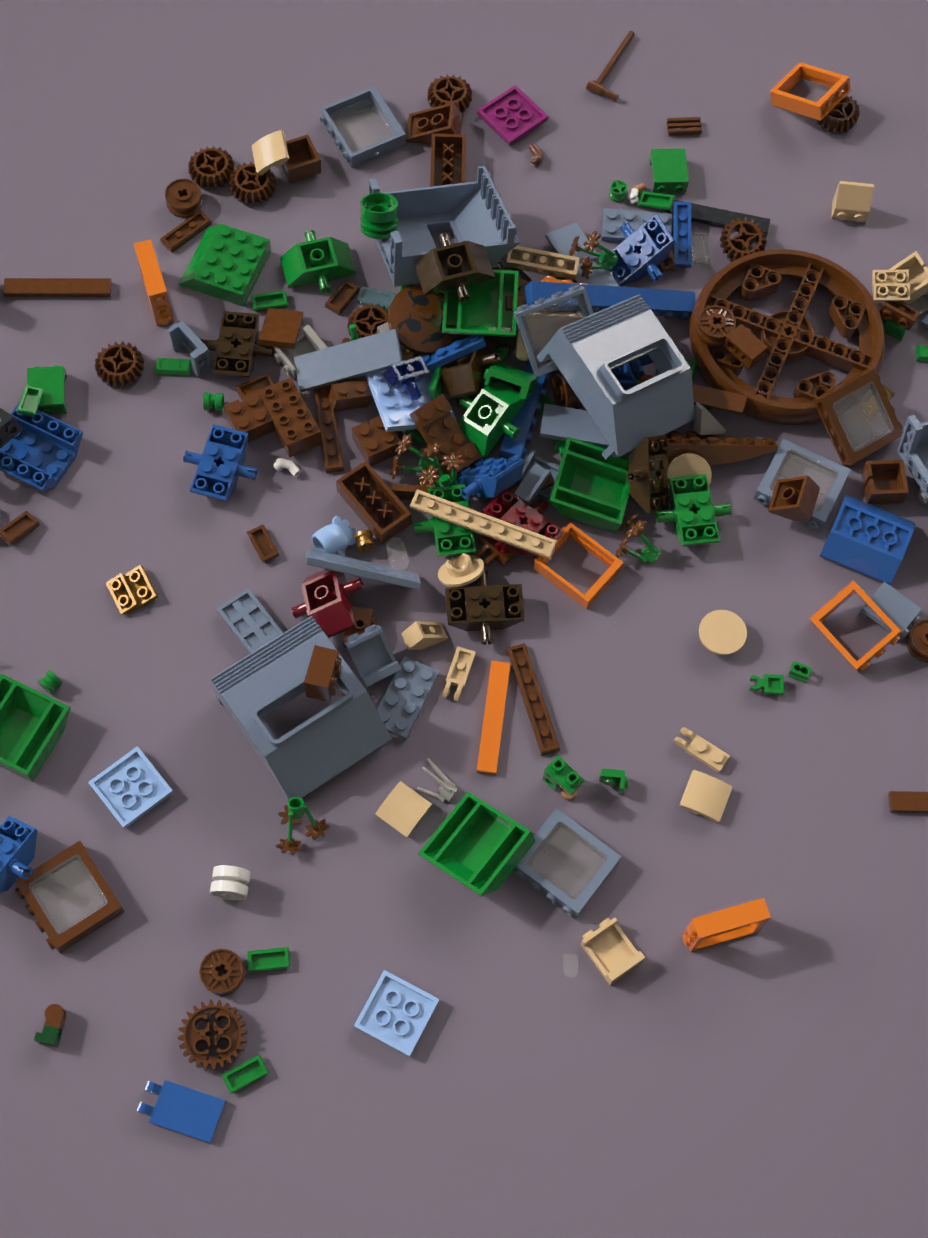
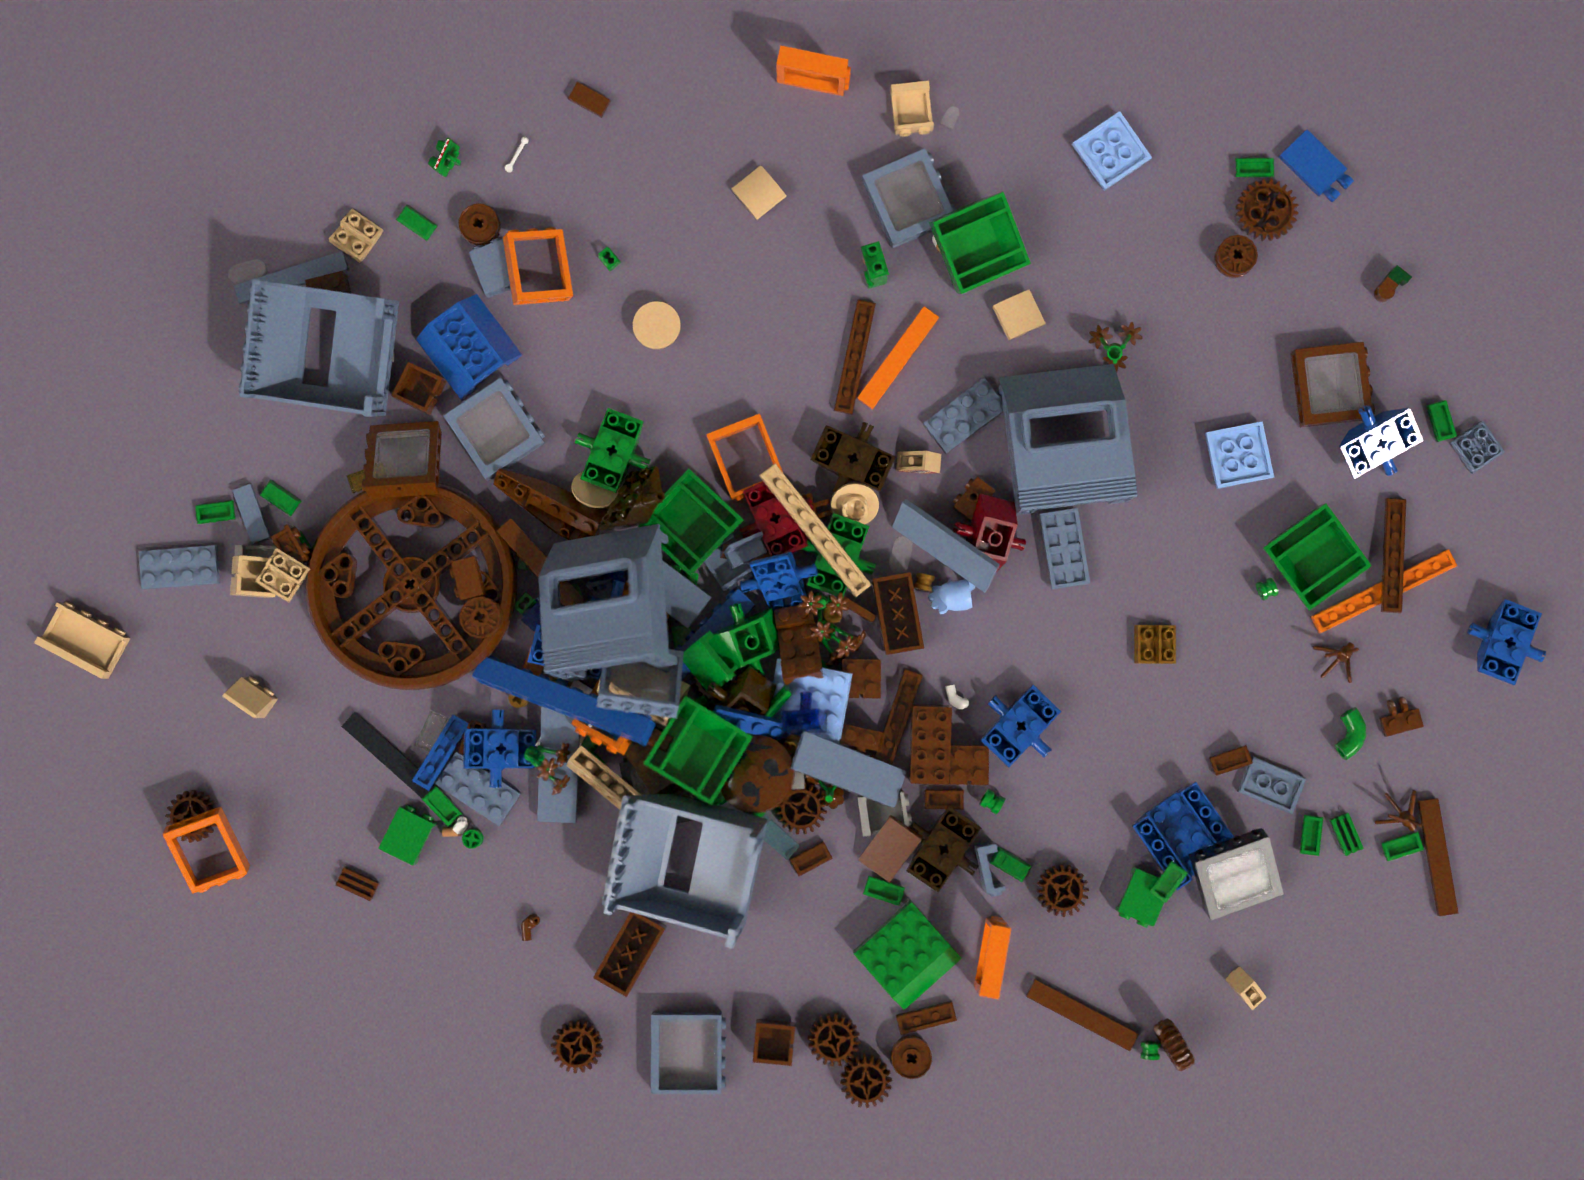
camera: 145 degrees left, 20 degrees up
(230, 882) = (1196, 323): white wheel -> none
(263, 543) = (1016, 629): reddish brown tile -> none
(268, 959) = (1193, 248): green tile -> none
(270, 152) = (803, 1056): tan slope -> none
(317, 262) = (798, 898): green slope -> none
(323, 673) = (1049, 430): reddish brown piece -> none
(371, 655) = (977, 461): sand blue panel -> none
(379, 215) = (743, 902): green wheel -> none
(436, 120) = (613, 1015): reddish brown slope -> none
(447, 789) = (975, 312): light grey plant -> none
(453, 267) = (728, 795): dark brown slope -> none
(459, 671) = (905, 413): tan hinge -> none
(512, 115) = (526, 988): magenta plate -> none
(597, 86) = (418, 981): reddish brown bar -> none
(614, 776) = (828, 250): green bracket -> none
(650, 552) = (674, 437): plant -> none
(702, 750) = (735, 233): tan hinge -> none
(705, 423) = (544, 533): light grey slope -> none
(738, 246) = (384, 720): reddish brown gear -> none
(770, 684) = (643, 259): green plate -> none
(794, 498) = (516, 410): reddish brown slope -> none

